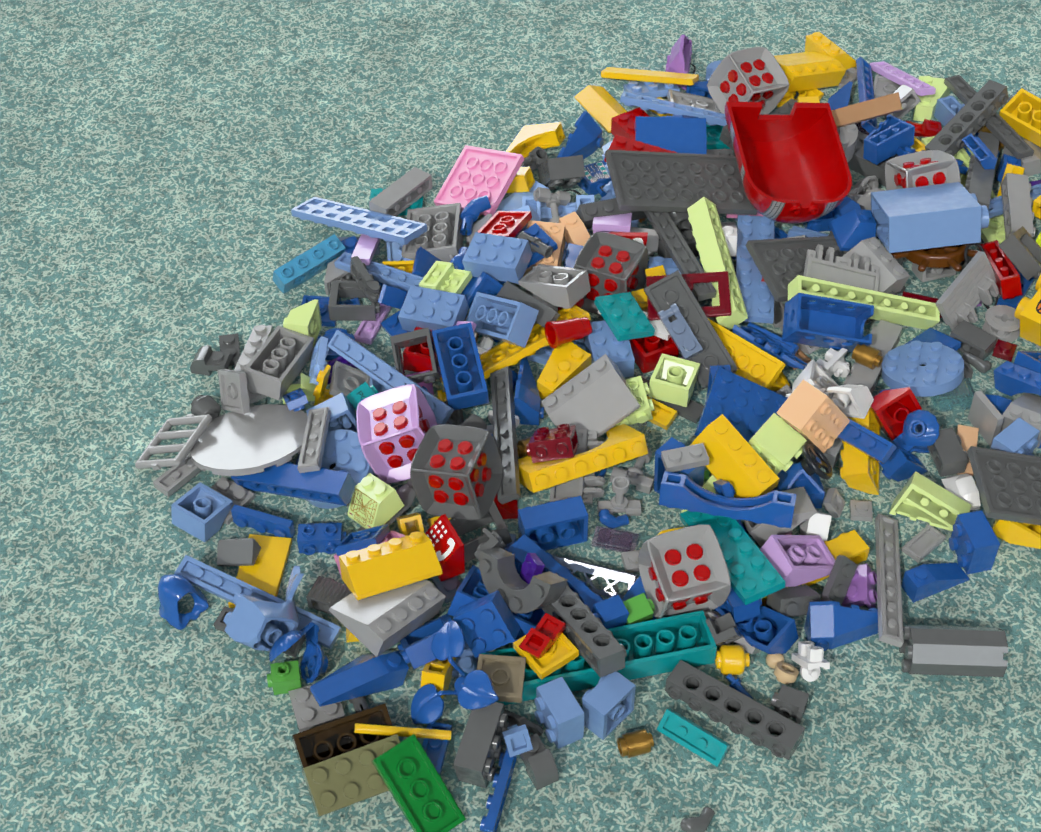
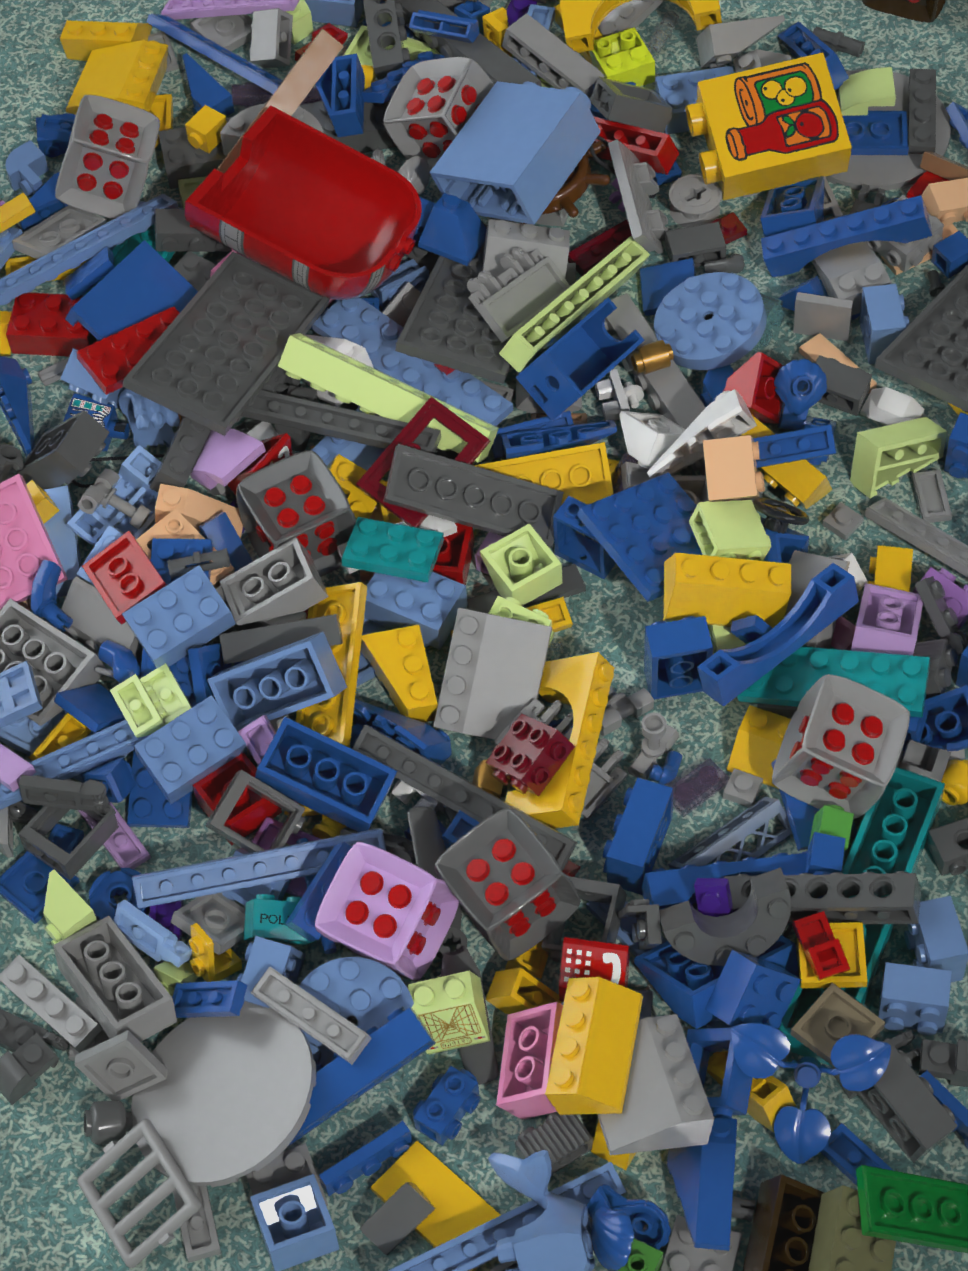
camera: 50 degrees left, 10 degrees up
(362, 539) = (504, 1056): blue tile -> none
(402, 731) = (825, 1180): yellow bar -> none
(517, 740) = (931, 1062): medium blue tile -> none
(566, 331) = (371, 625): red plant -> none
(680, 332) = (474, 509): sand blue plate -> none
(685, 458) = (690, 634): light grey plate -> none
(834, 502) = (817, 539): light grey plate -> none

